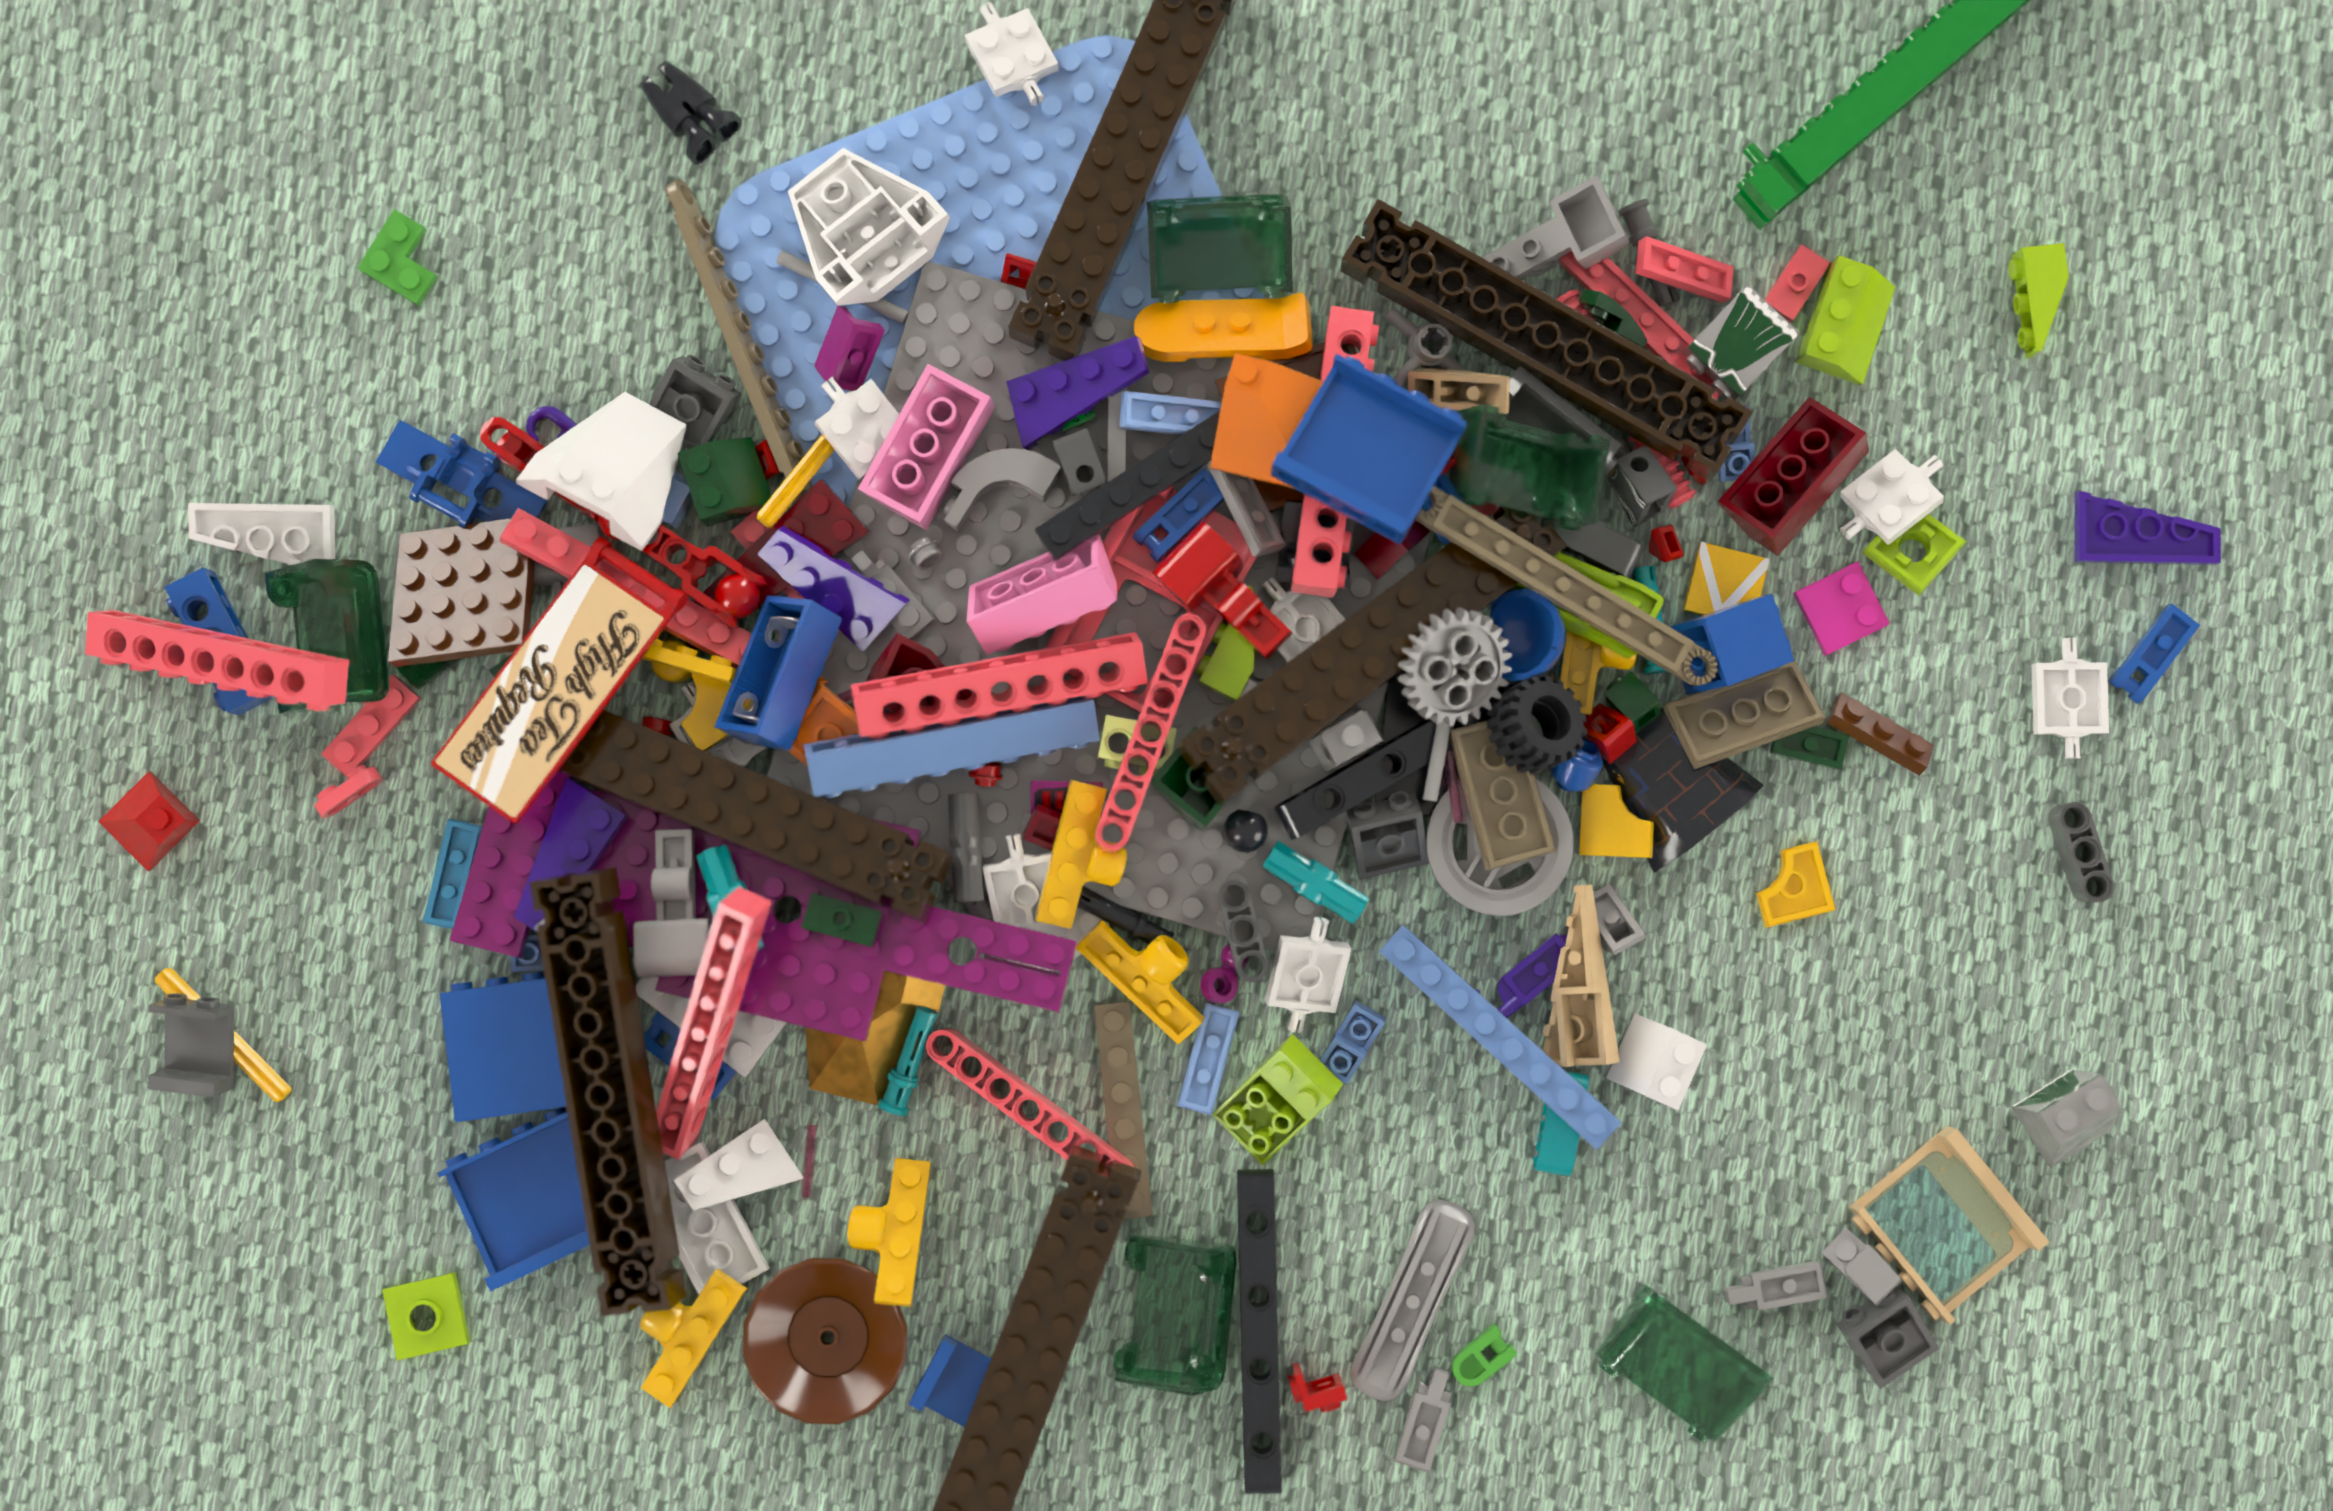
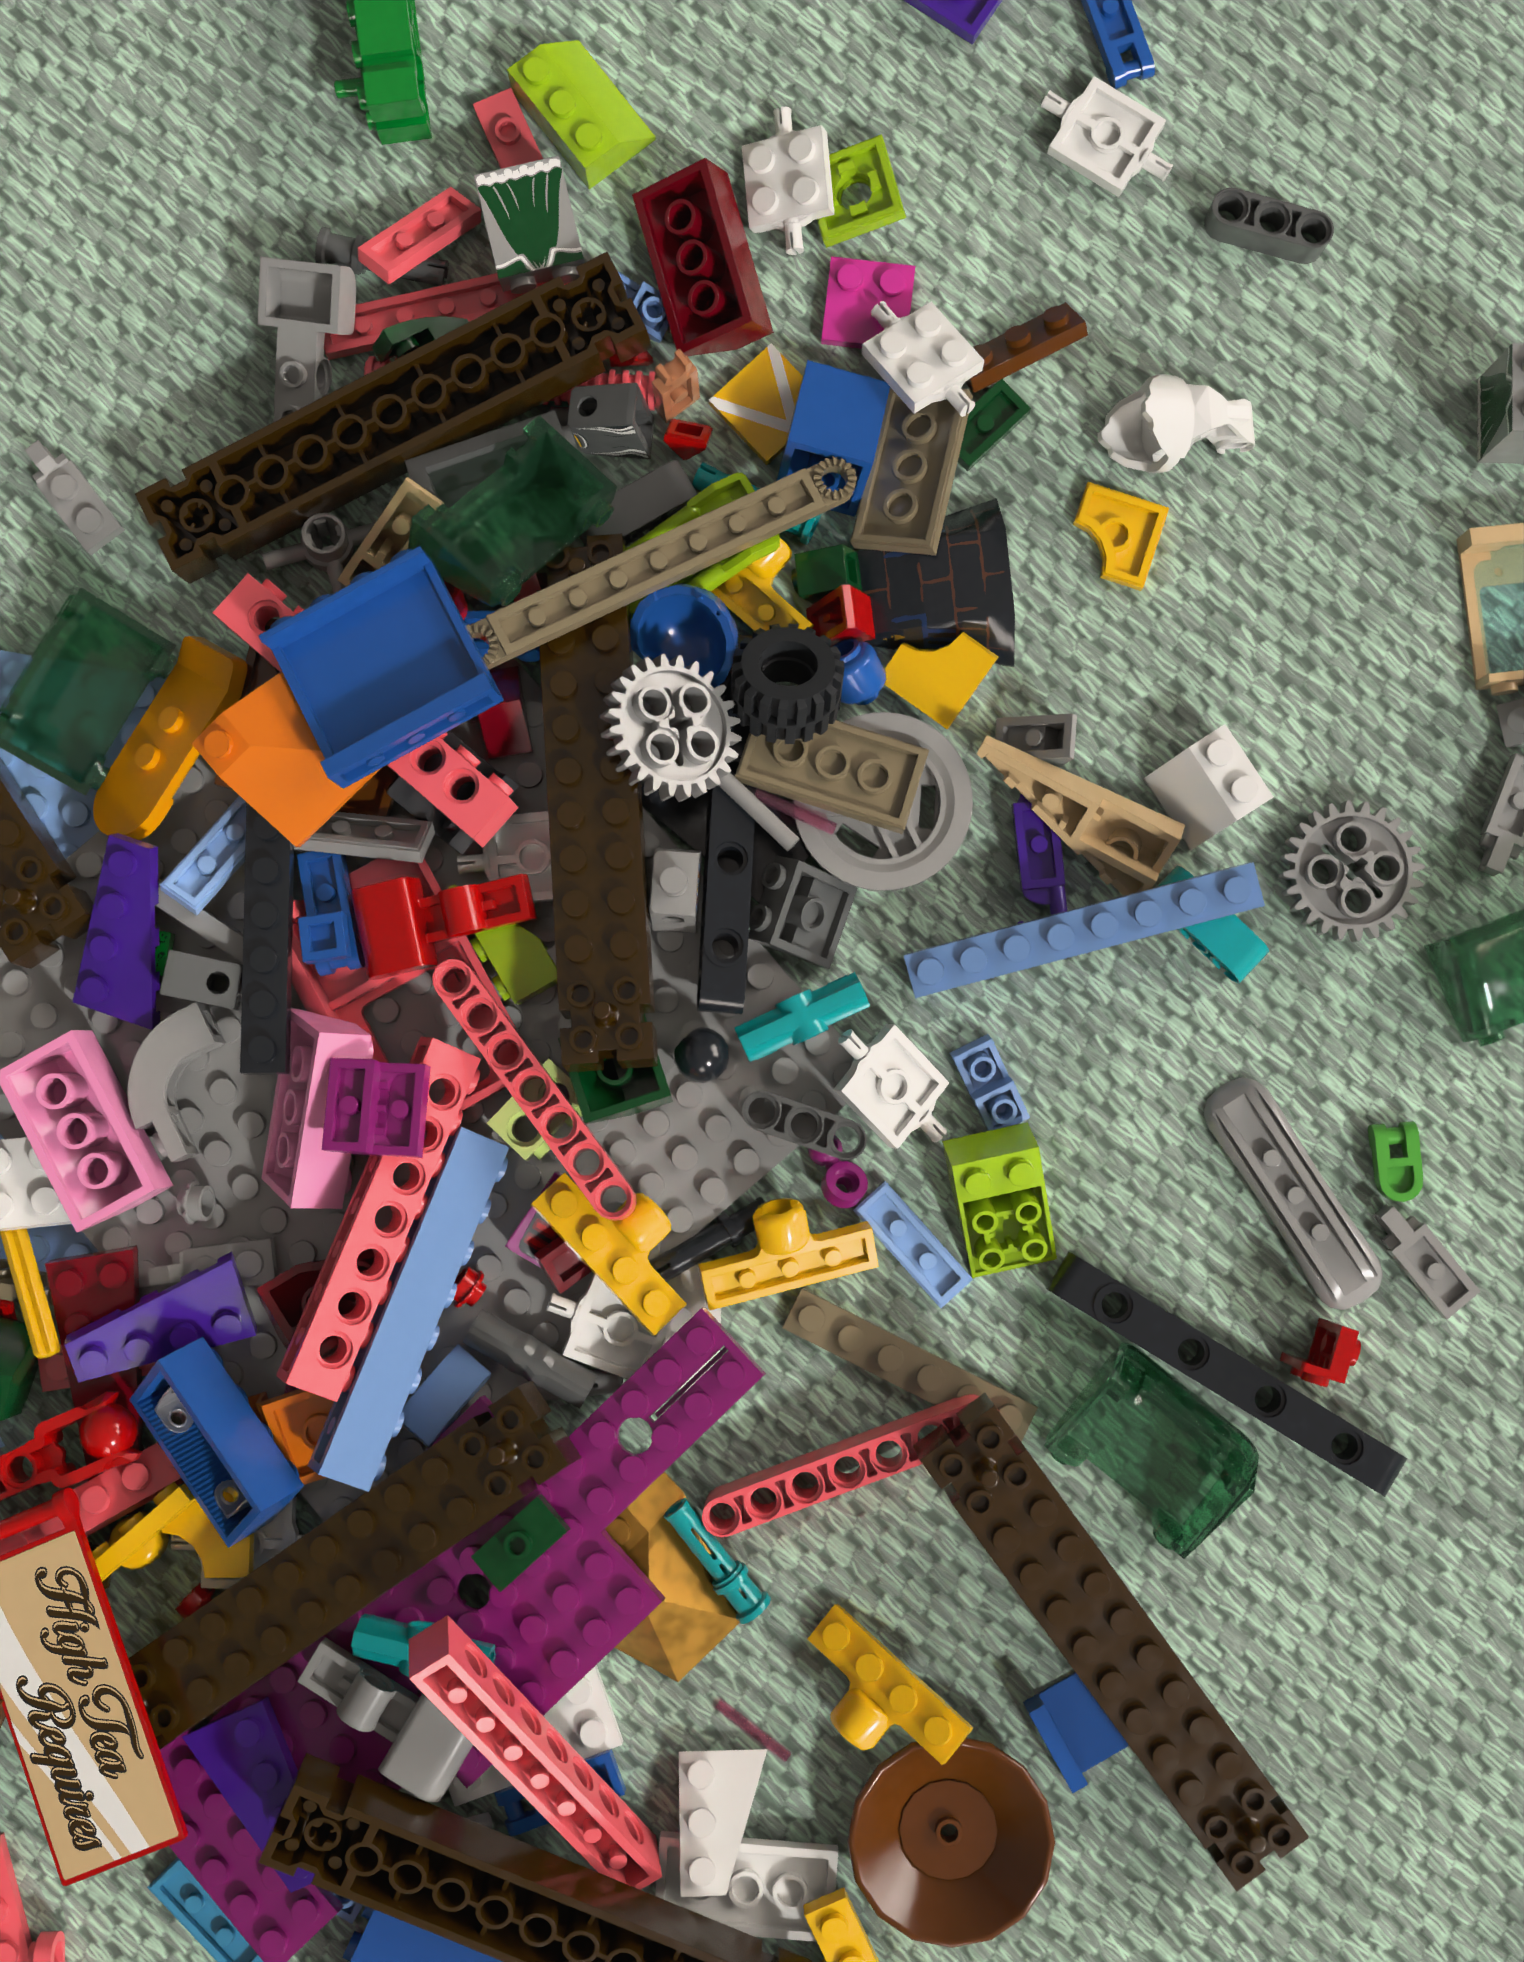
camera: 50 degrees left, 0 degrees up
(904, 804) = (443, 1395): none -> medium blue slope
(1071, 636) = (376, 1108): none -> magenta slope
(1161, 525) = (324, 937): none -> blue plate
(1346, 152) = (74, 499): none -> light grey hinge
(1693, 514) = (675, 386): none -> nougat plate
(1695, 1202) = (1375, 841): none -> light grey gear
(1826, 671) = (923, 357): none -> white plate
(1895, 868) = (1165, 420): none -> white piece

